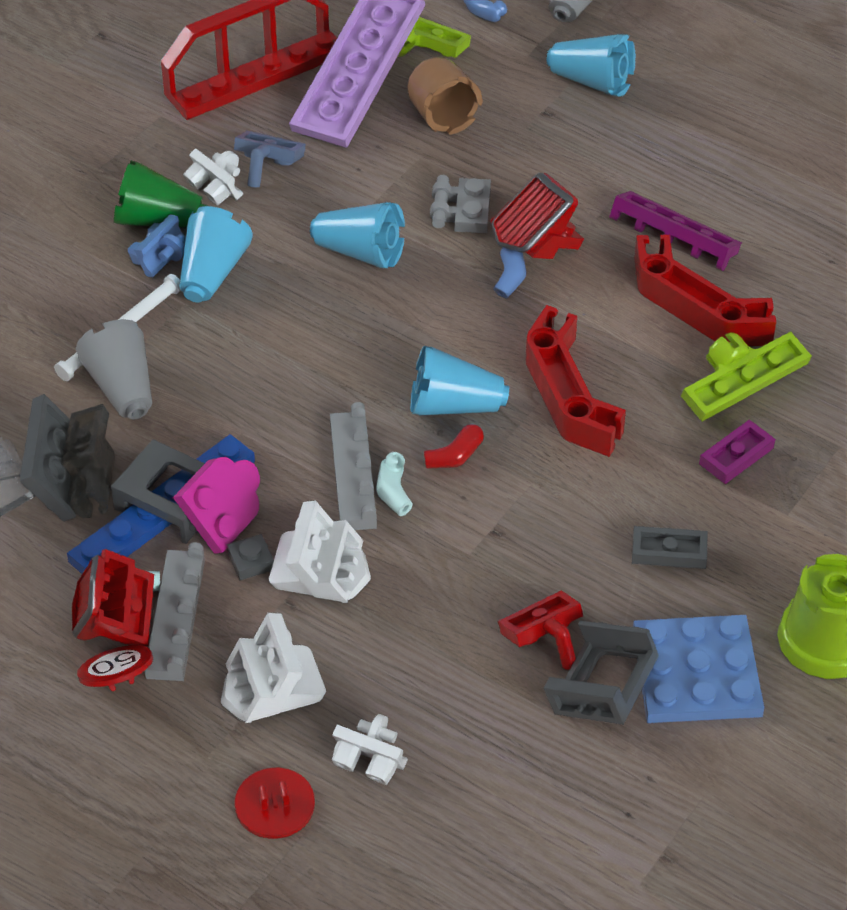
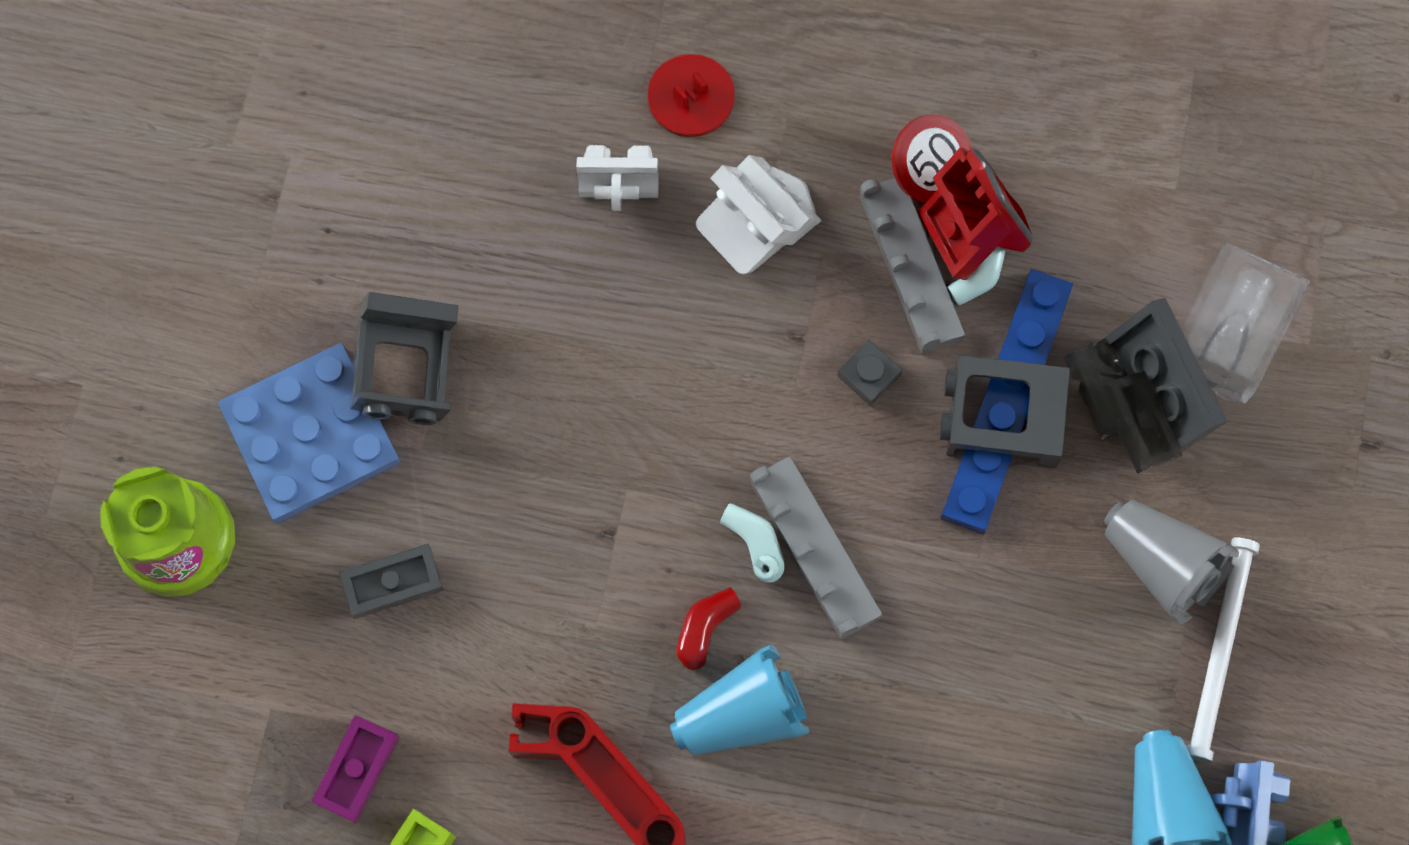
camera: 160 degrees right, 25 degrees up
(221, 500) = (935, 407): dark pink plate -> none
(320, 557) = (782, 379): white piece -> none
(544, 617) = (499, 411): red plate -> none

